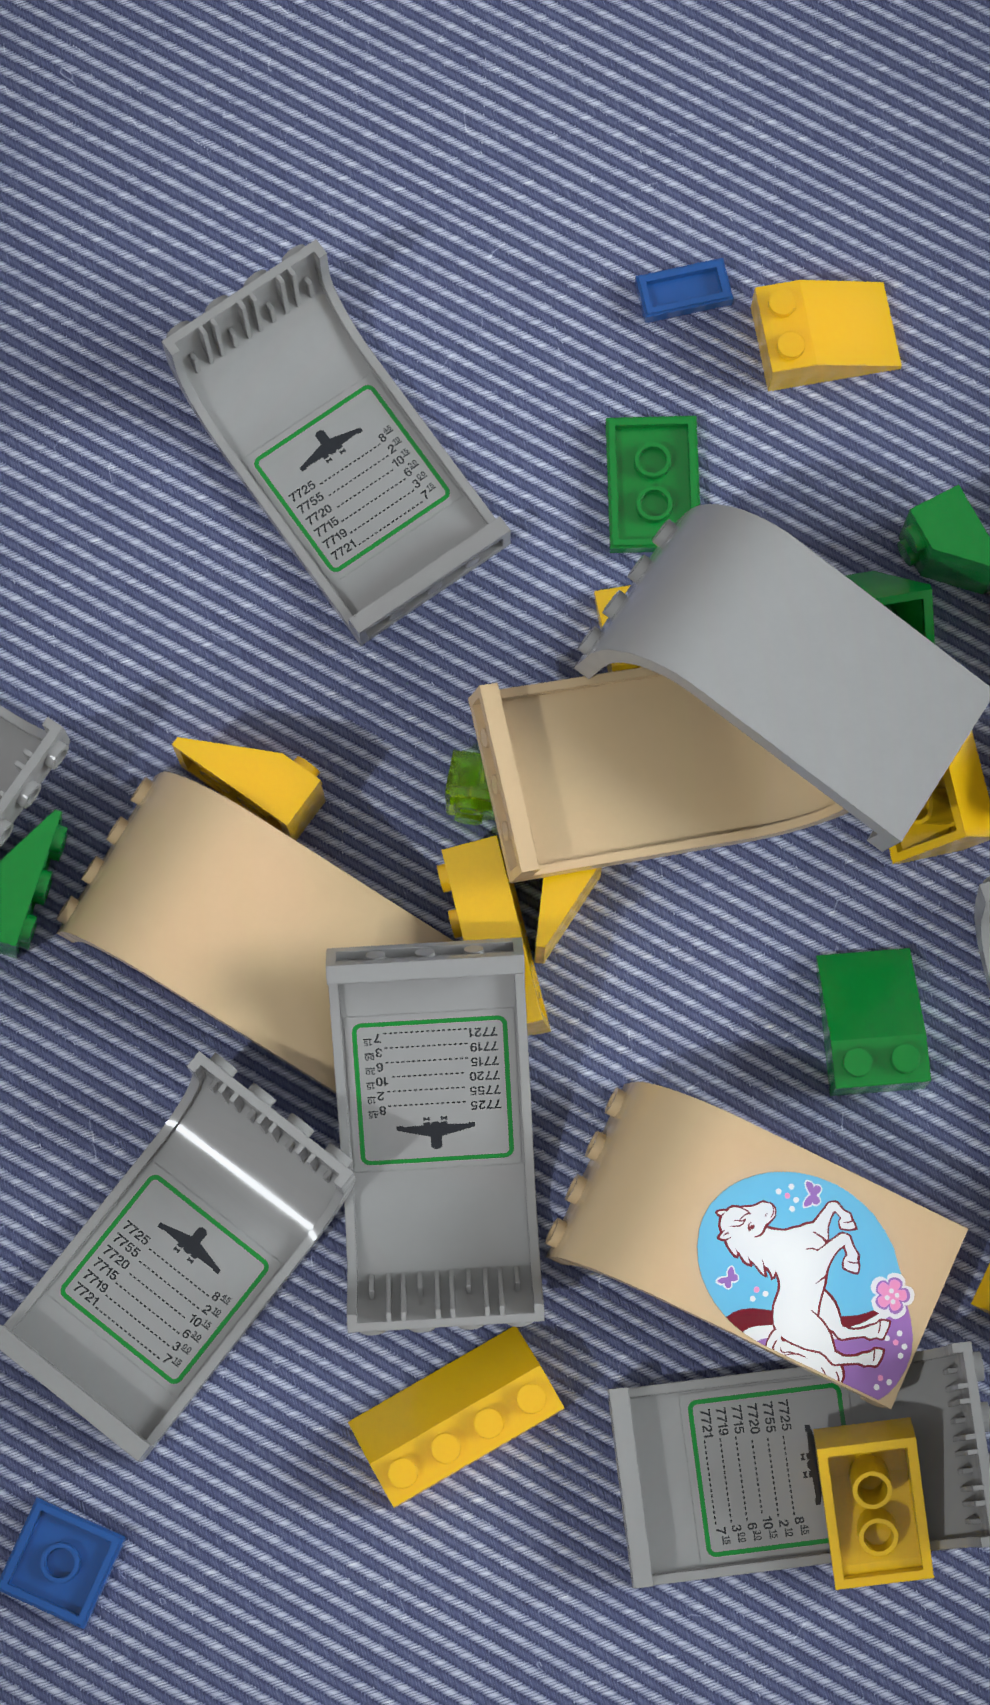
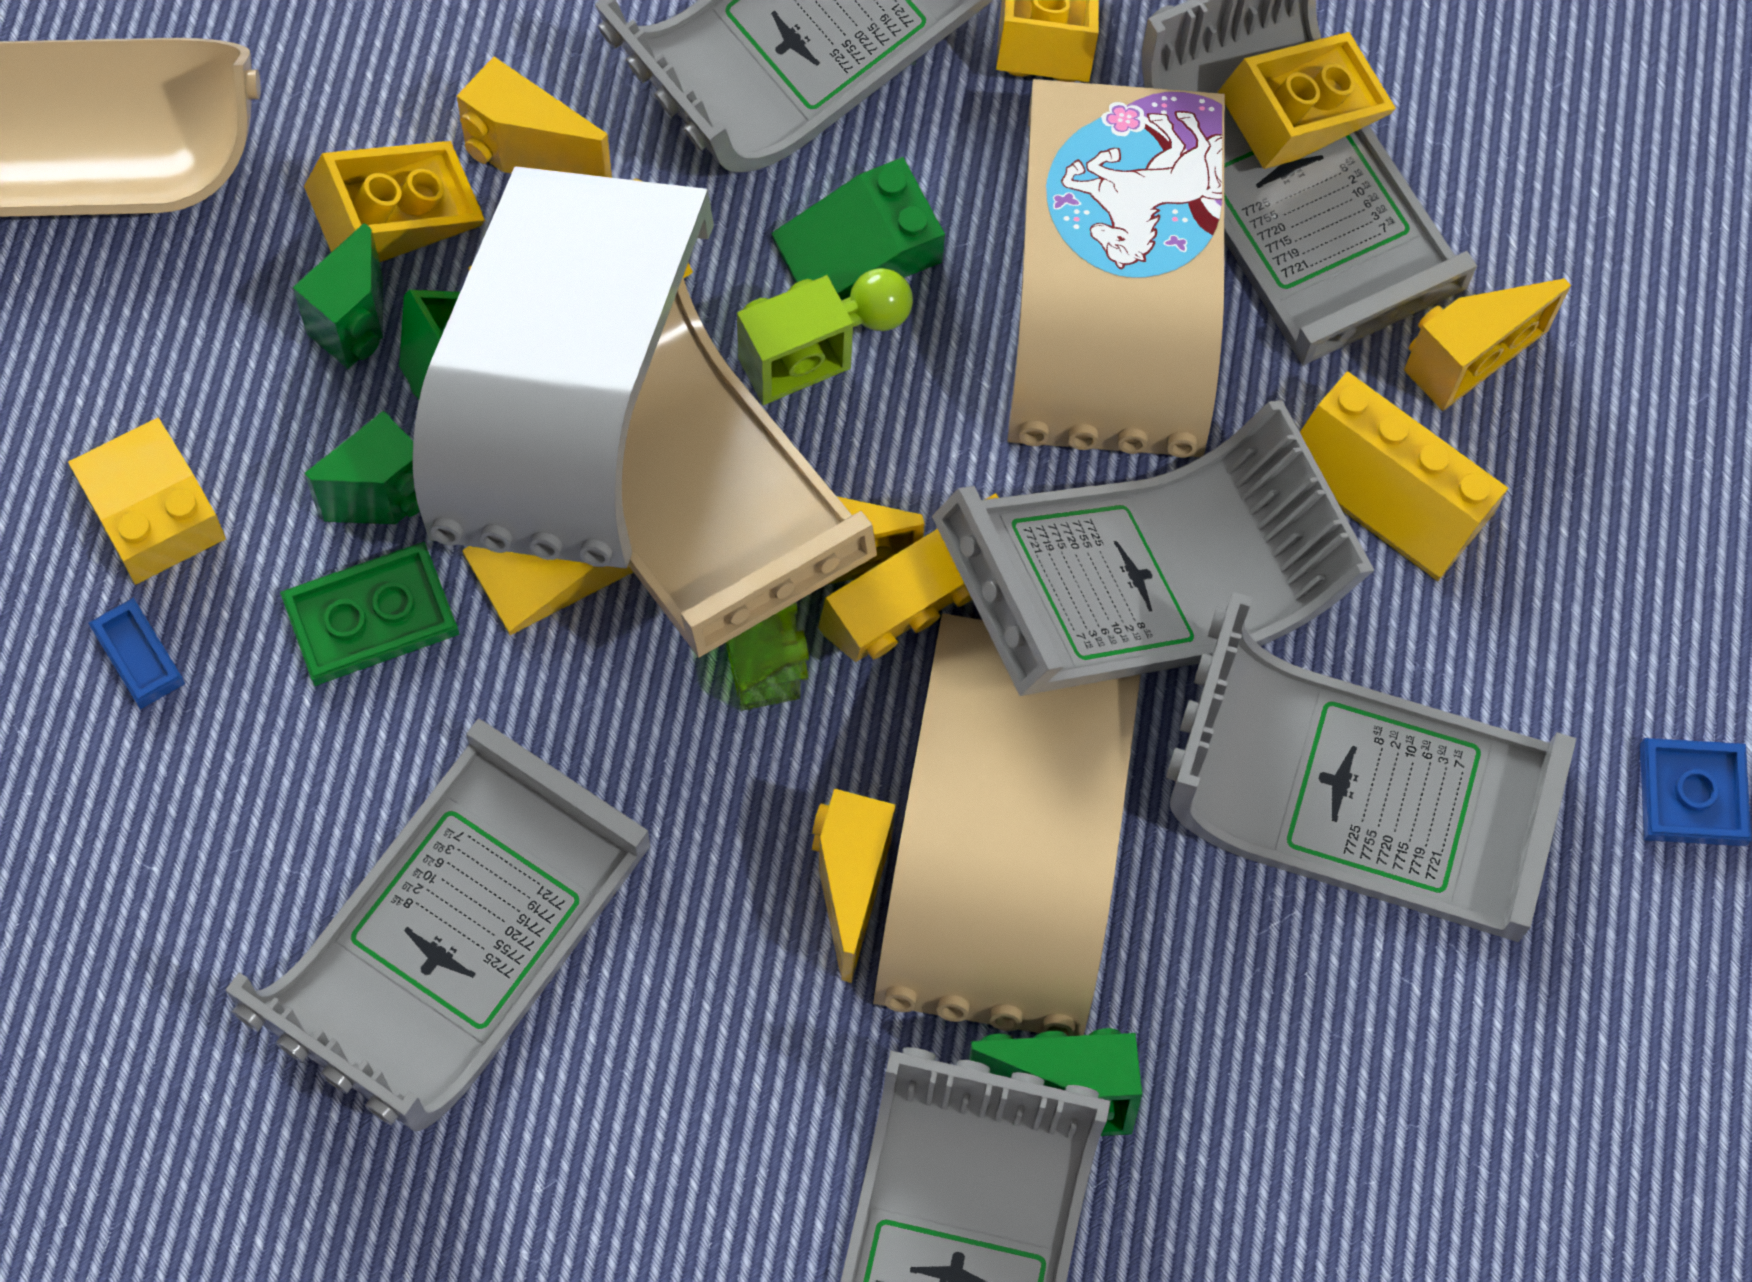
camera: 115 degrees left, 10 degrees down
(557, 1546) = (1479, 336): none -> yellow slope
(772, 495) = (366, 477): none -> green slope
(781, 940) = (809, 330): none -> lime brick

